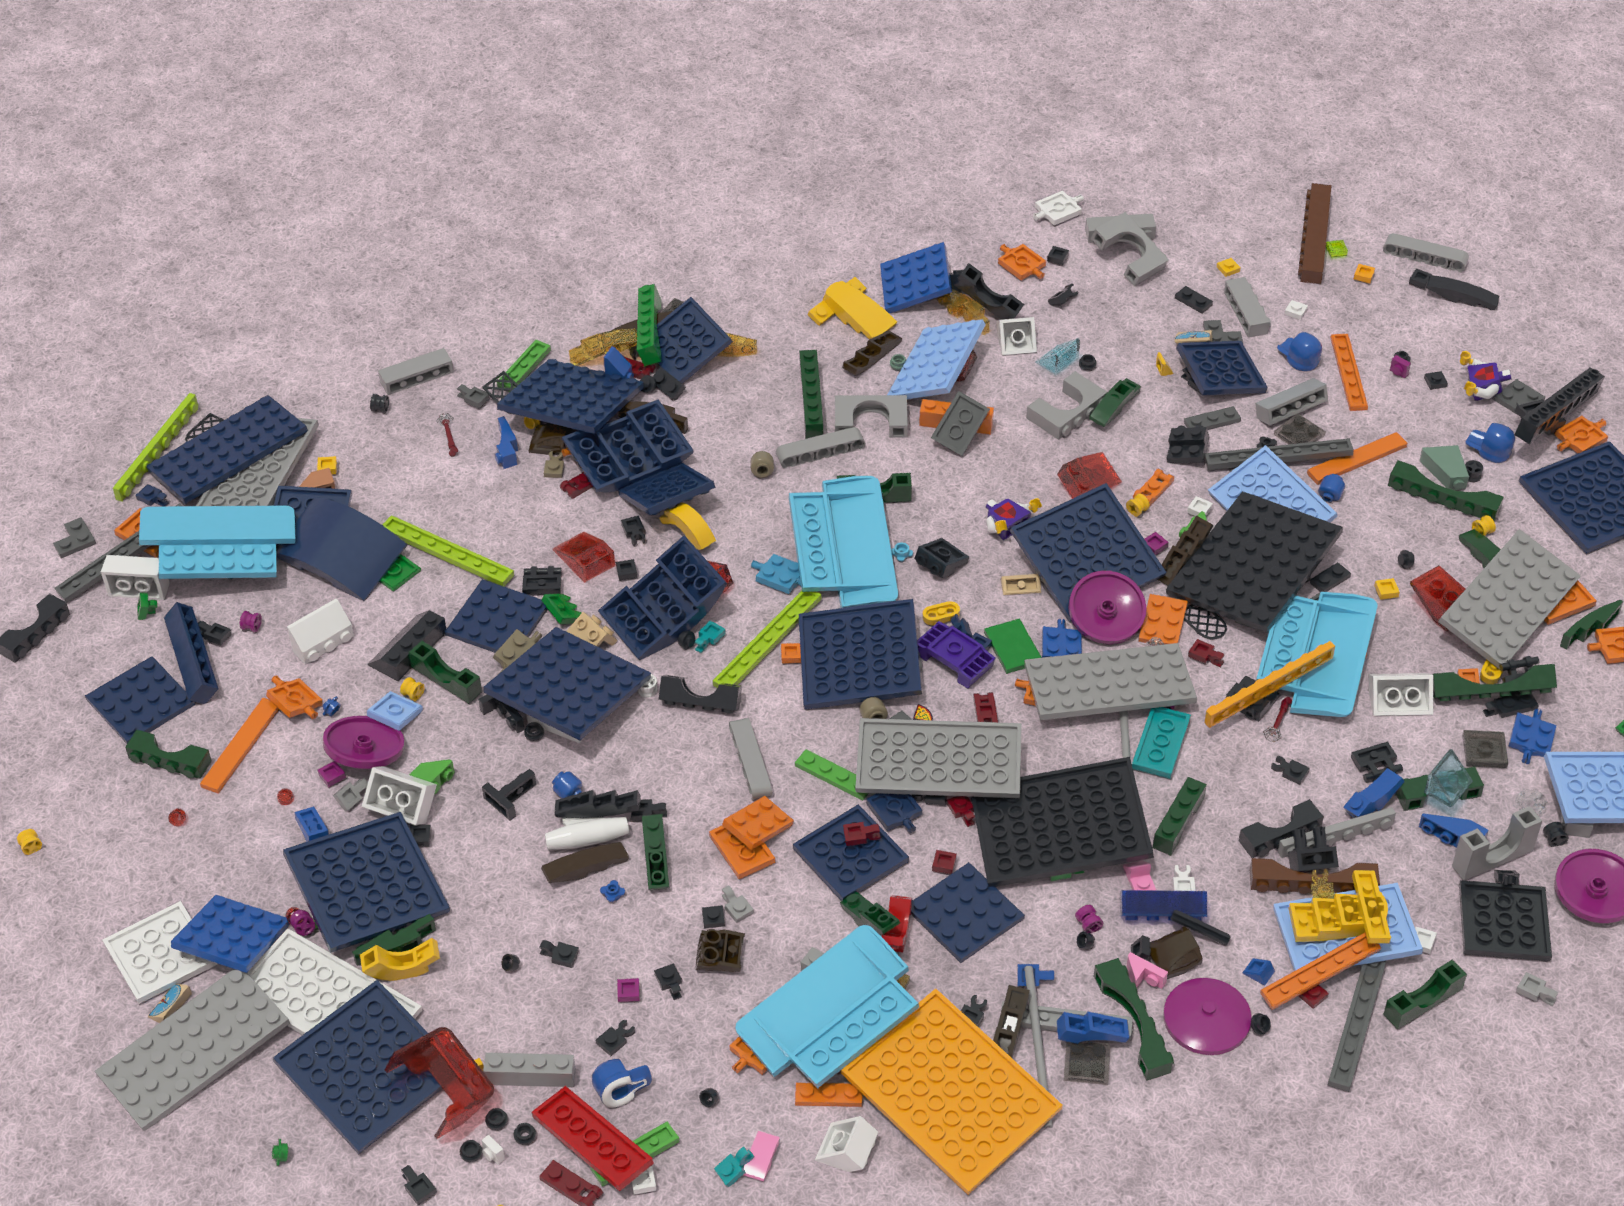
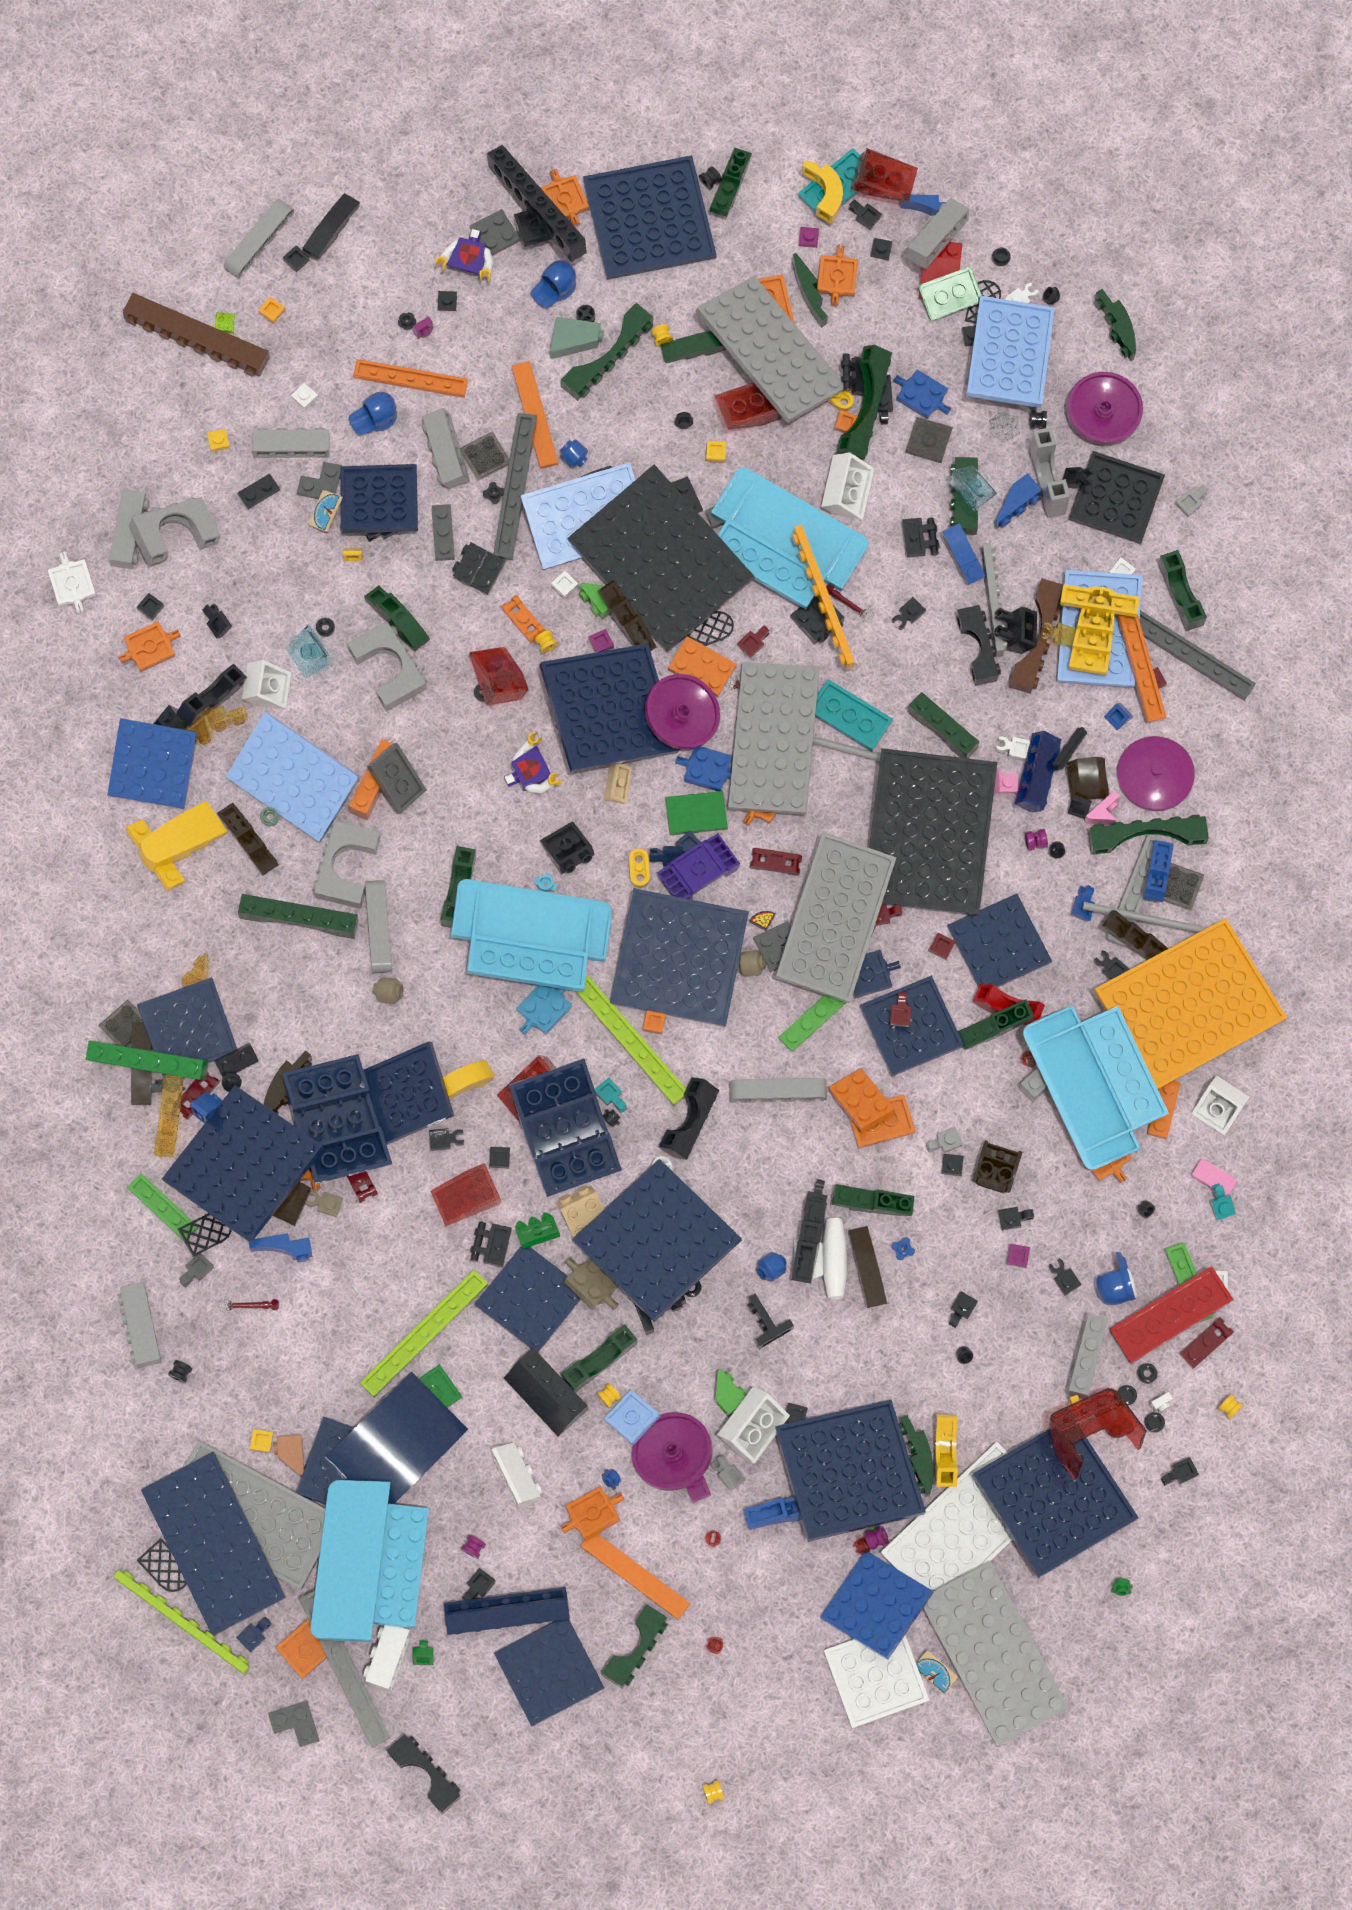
camera: 80 degrees left, 25 degrees up
(1260, 1023) = (1176, 733): black plate -> none

